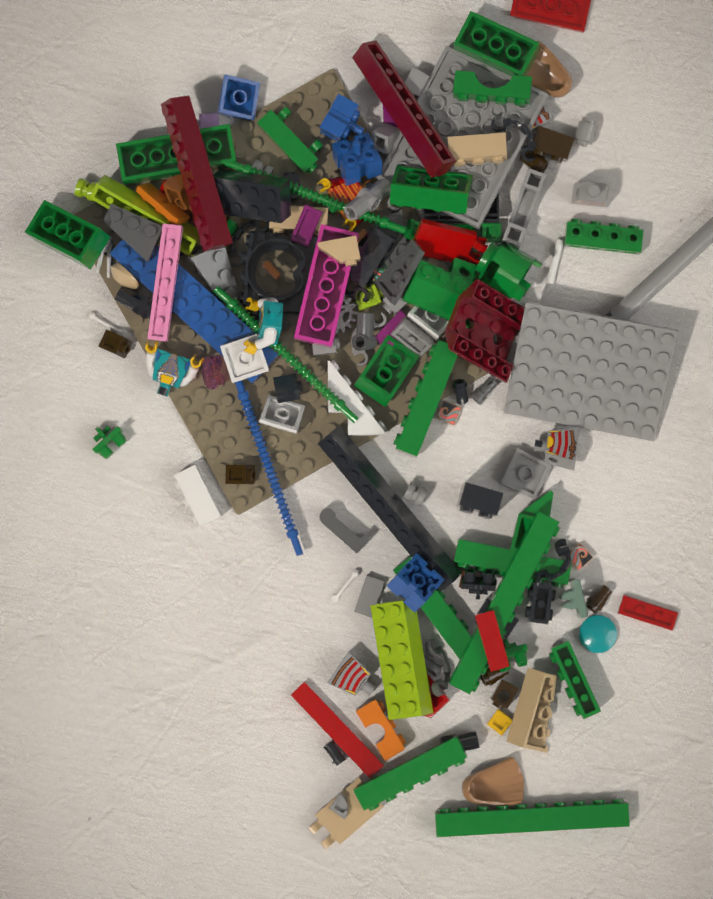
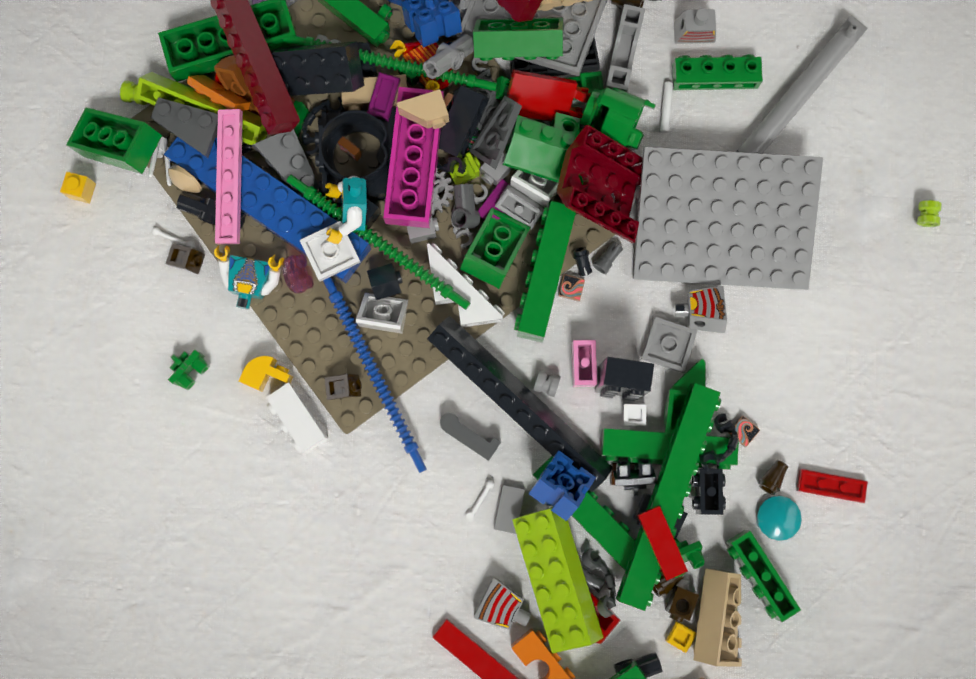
camera: 10 degrees left, 5 degrees down
(29, 269) = (78, 187): none -> yellow brick
(170, 450) = (260, 369): none -> yellow brick
(449, 481) = (584, 363): none -> bright pink brick
(487, 529) = (634, 413): none -> white plate
(576, 599) = (750, 480): sand green piece -> none

